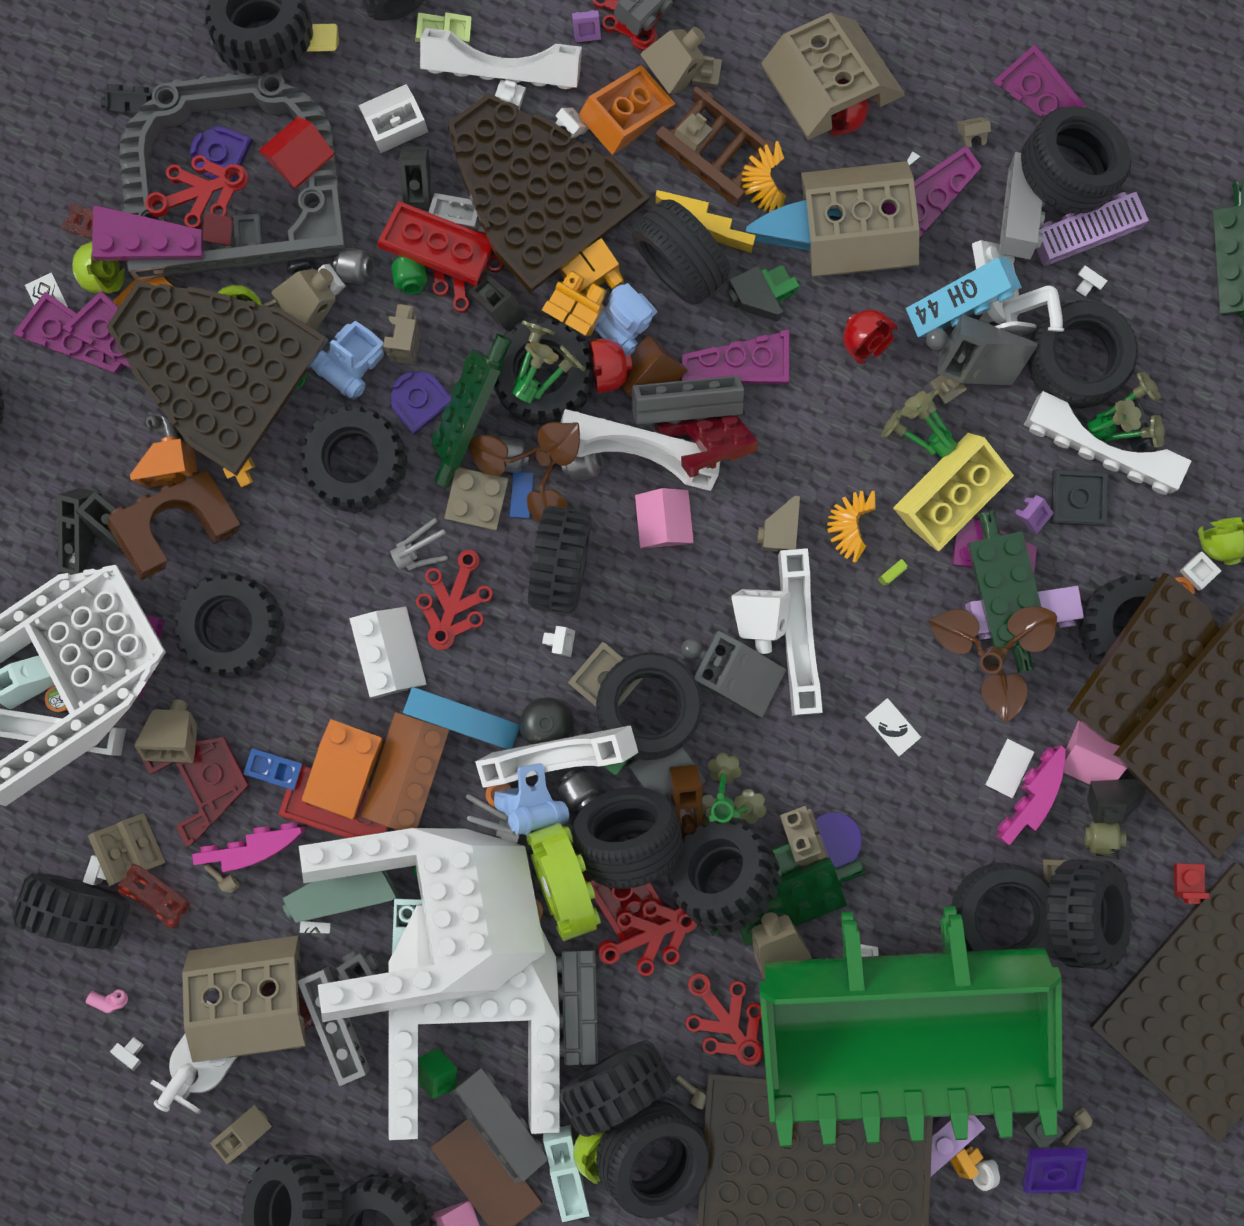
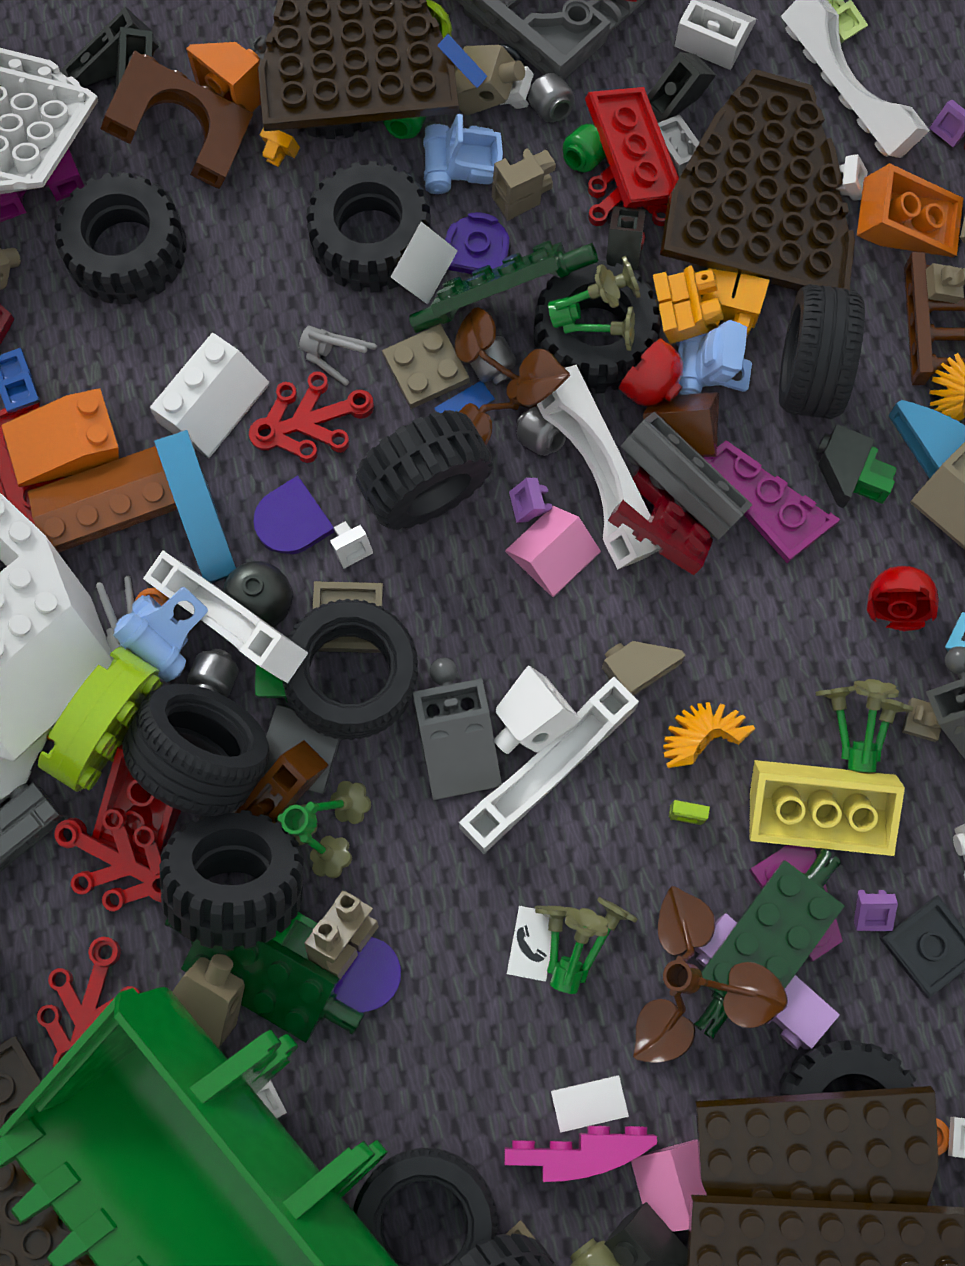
camera: 45 degrees right, 10 degrees down
(293, 308) = (462, 60): none -> blue sticker
(410, 445) = (424, 263): none -> white sticker
(510, 92) = (832, 109): white tile -> none
(511, 664) = (290, 519): none -> dark purple tile
(621, 508) = (528, 500): none -> medium lavender tile
(716, 225) = (875, 374): yellow slope -> none
(918, 690) = (570, 971): none -> plant

